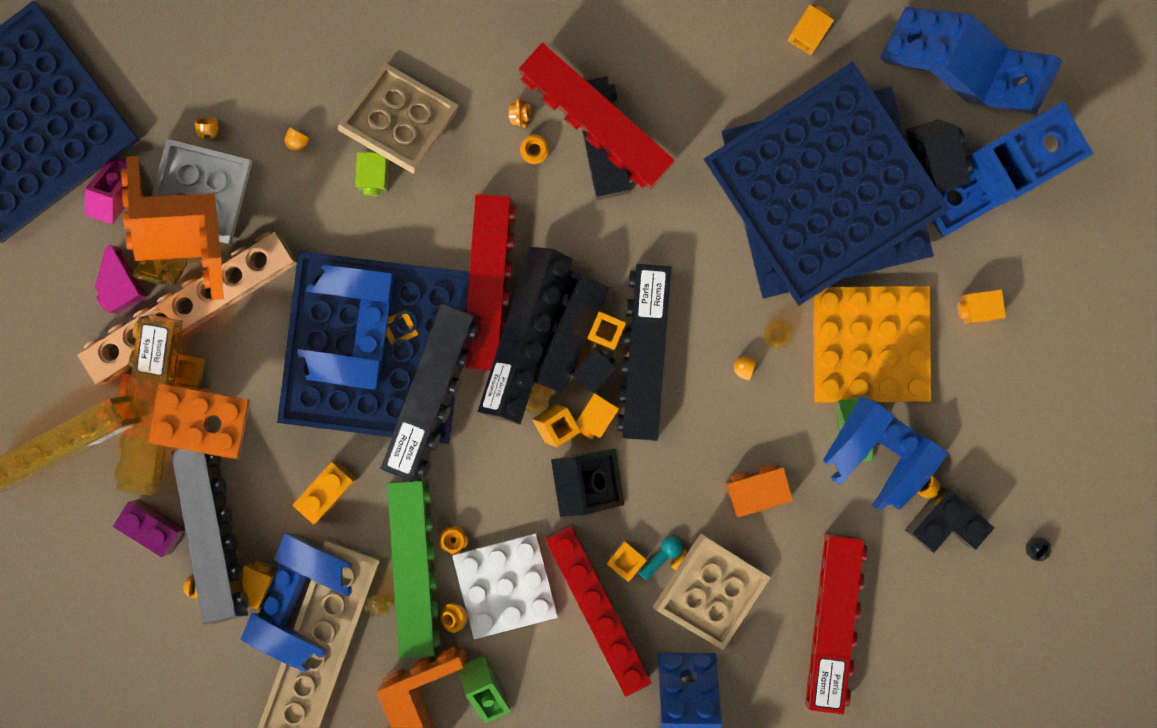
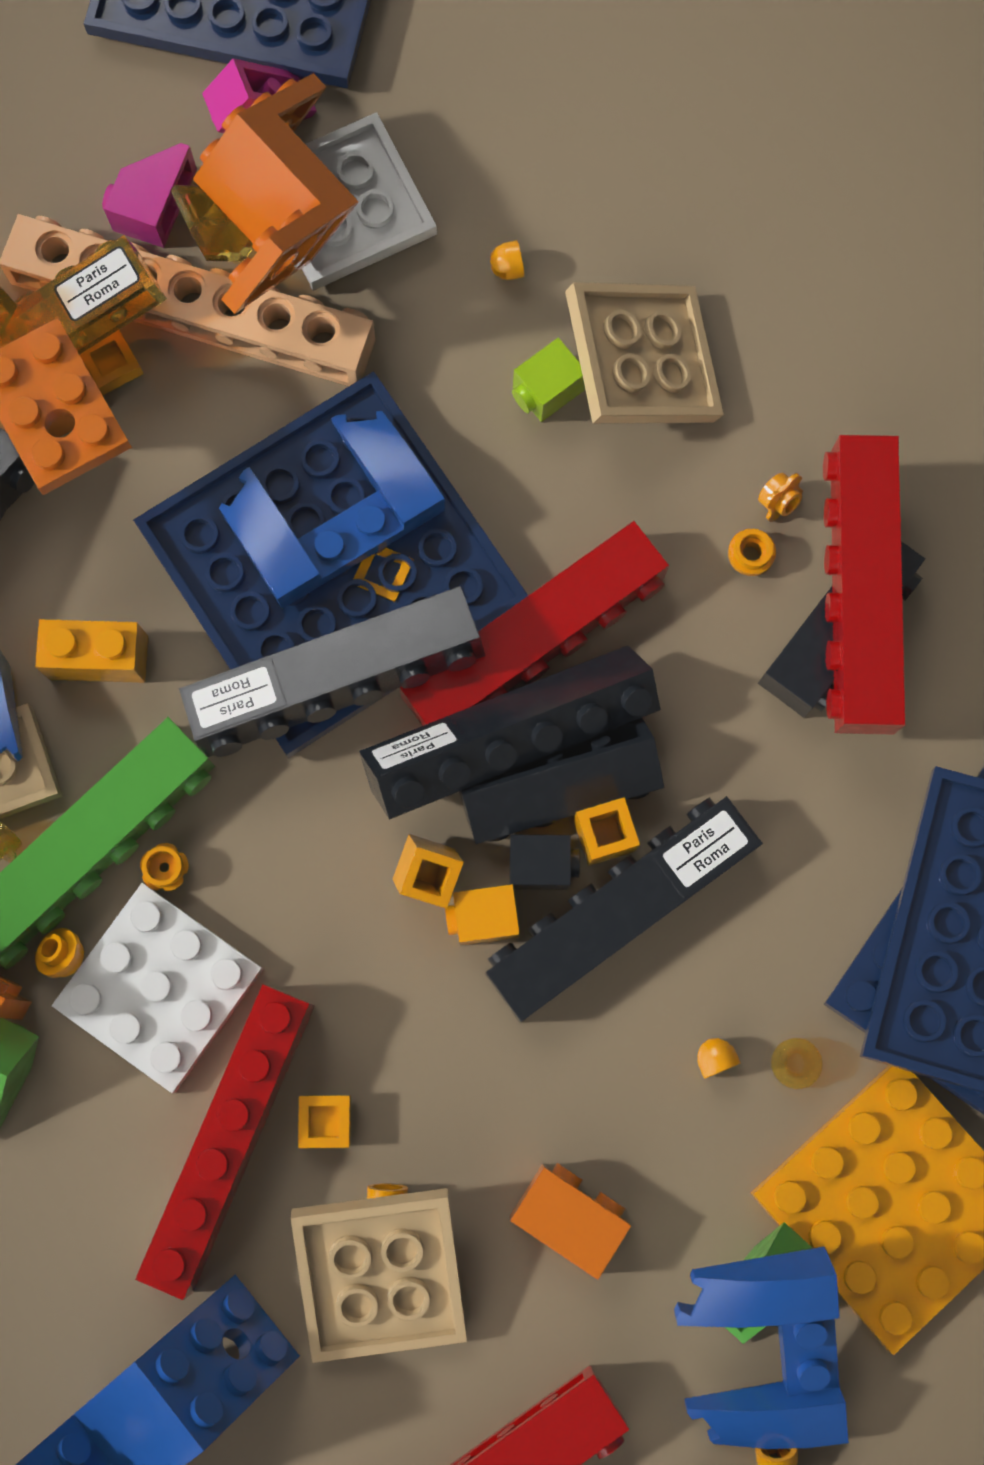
camera: 45 degrees right, 10 degrees down
(206, 126) = (432, 148): light orange hinge -> none
(545, 400) = (446, 833): clear yellow plate -> none
(587, 482) = (386, 978): black slope -> none
(670, 548) = (393, 1167): teal bar -> none

